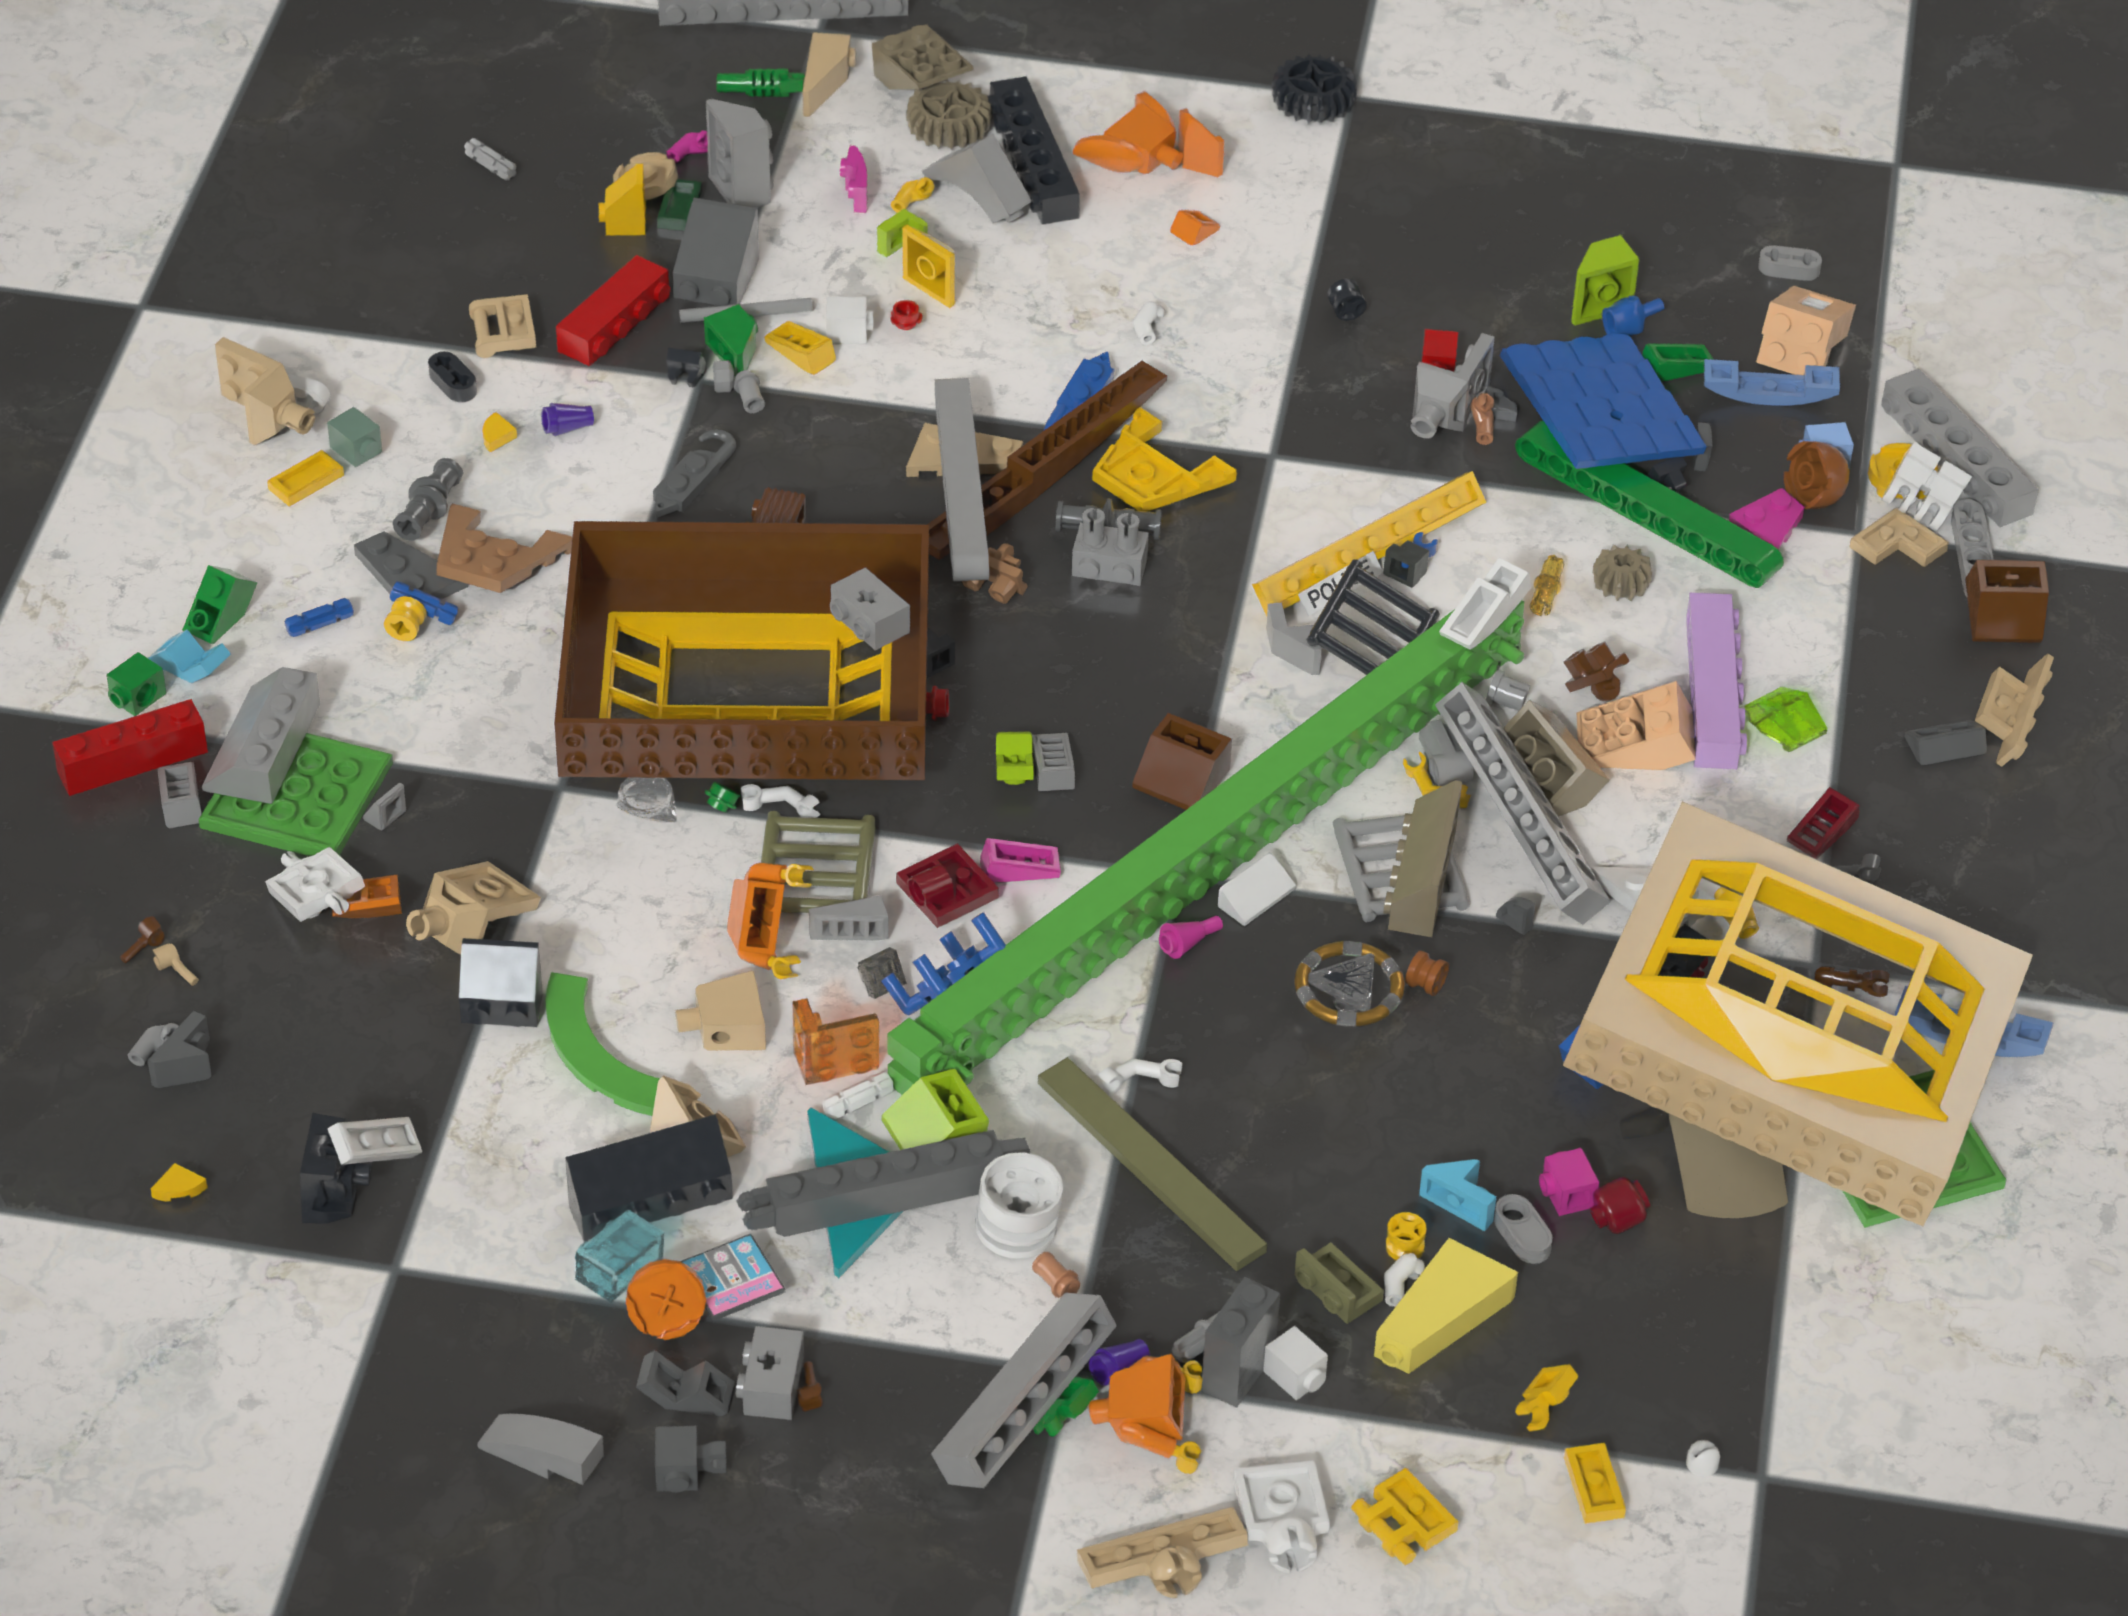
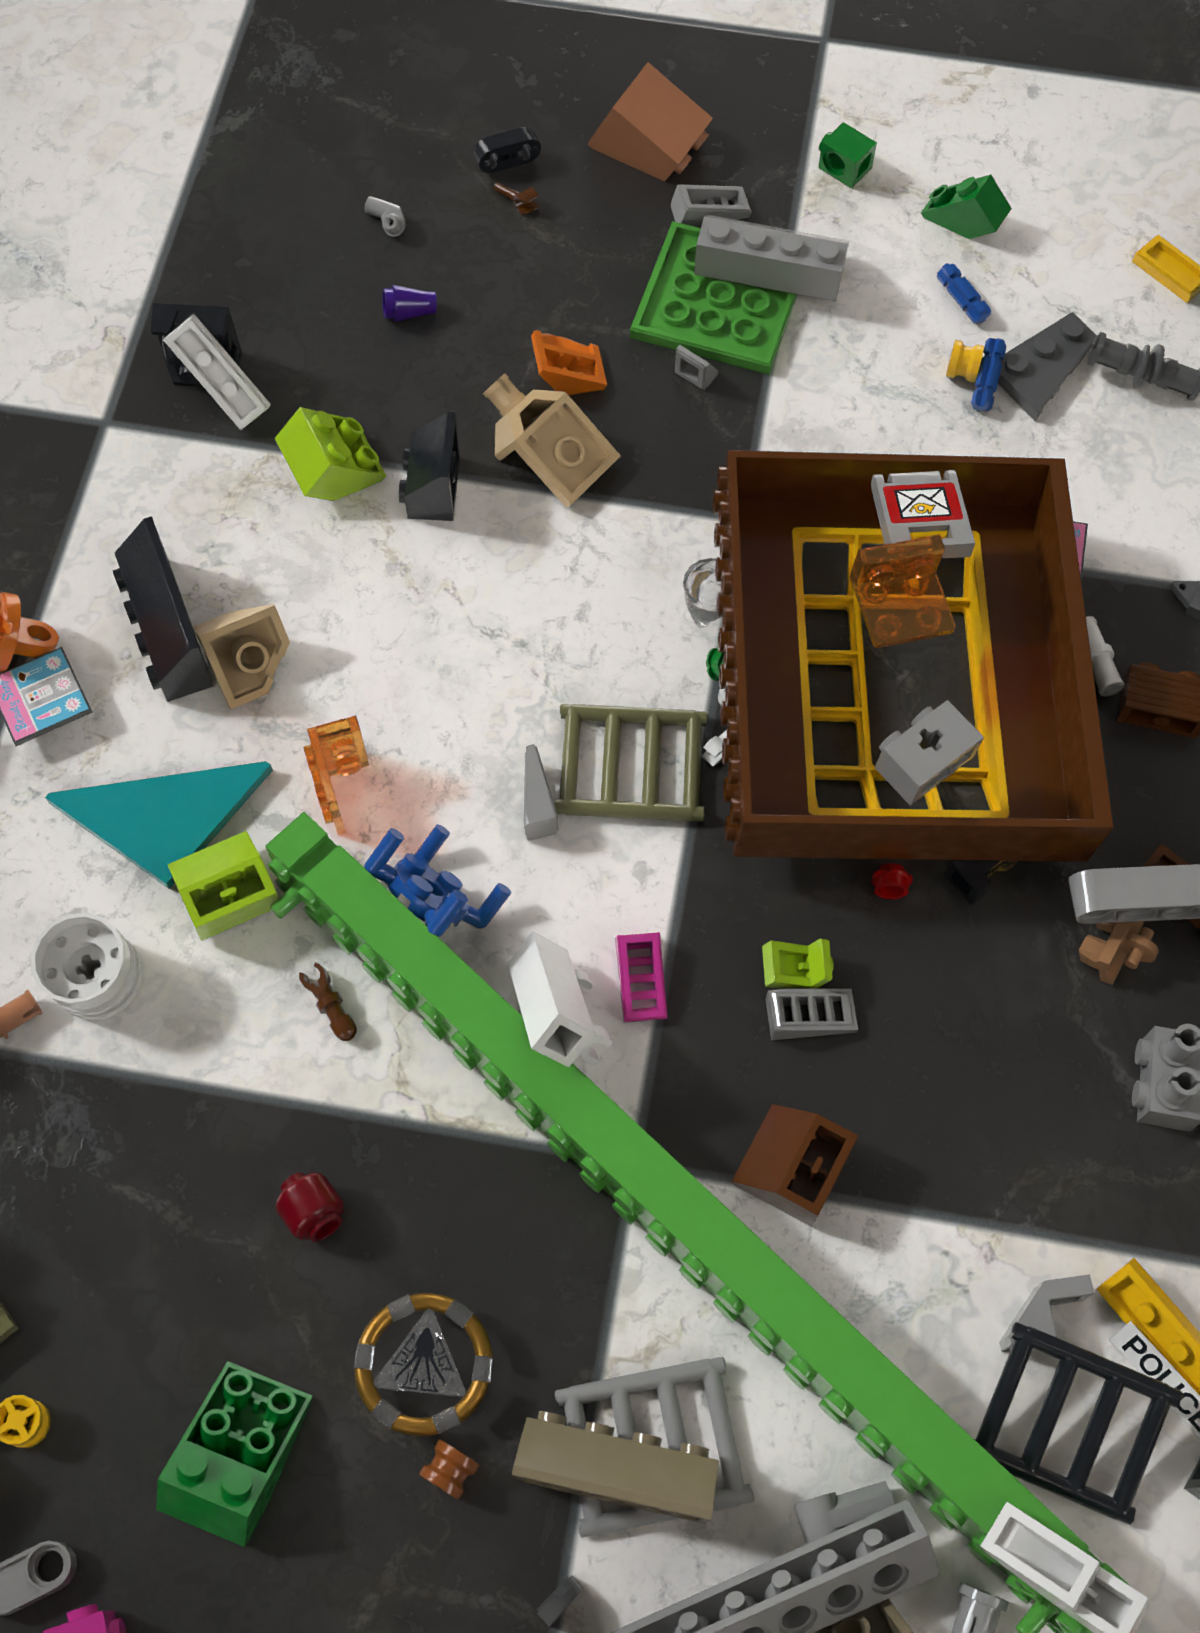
camera: 90 degrees right, 20 degrees up
(75, 827) = (652, 126): none -> nougat slope
(83, 942) = (507, 149): none -> black beam
(130, 747) = (758, 157): red brick -> none
(168, 956) = (493, 216): tan hand -> none
(178, 1183) = (216, 249): yellow tile -> none
(182, 1055) = (369, 230): dark grey slope -> none
(187, 659) = (893, 193): medium azure slope -> none
(279, 1022) = (406, 303): none -> dark purple cone
(315, 884) = (578, 311): white plate -> none
(469, 1073) = (328, 454): none -> lime slope
(490, 561) = (1064, 421): medium nougat wing -> none
(584, 1053) = (362, 556): bright green tile -> none
(617, 1253) = (73, 592): clear light blue brick -> none
(630, 604) = (923, 504): none -> container
(719, 617) = (902, 591): none -> clear orange bracket
(726, 1014) = (401, 680): tan torso -> none
(756, 915) = (519, 690): orange torso -> none
(858, 1095) = (281, 799): white axle -> none
(874, 1185) = (130, 833): dark grey hinge -> none
(878, 967) = (462, 827): clear smoke tile -> none
(947, 885) = (595, 894): dark red plate -> none
(1042, 1061) = (330, 1004): none -> reddish brown piece
(1056, 882) = (554, 1003): none -> white brick
(1152, 1164) = (167, 1124): olive tile -> none
(1163, 1071) = (317, 1106): white arm -> none
(1180, 937) = (516, 1161): dark pink cone -> none
(1225, 1058) = (310, 1206): none -> dark red head
(1255, 890) = (598, 1254): white slope -> none
(1424, 782) = (777, 1523): yellow arm -> none
(1424, 1101) = (232, 1454): none -> green slope
(1455, 1190) = (89, 1483): medium azure slope -> none

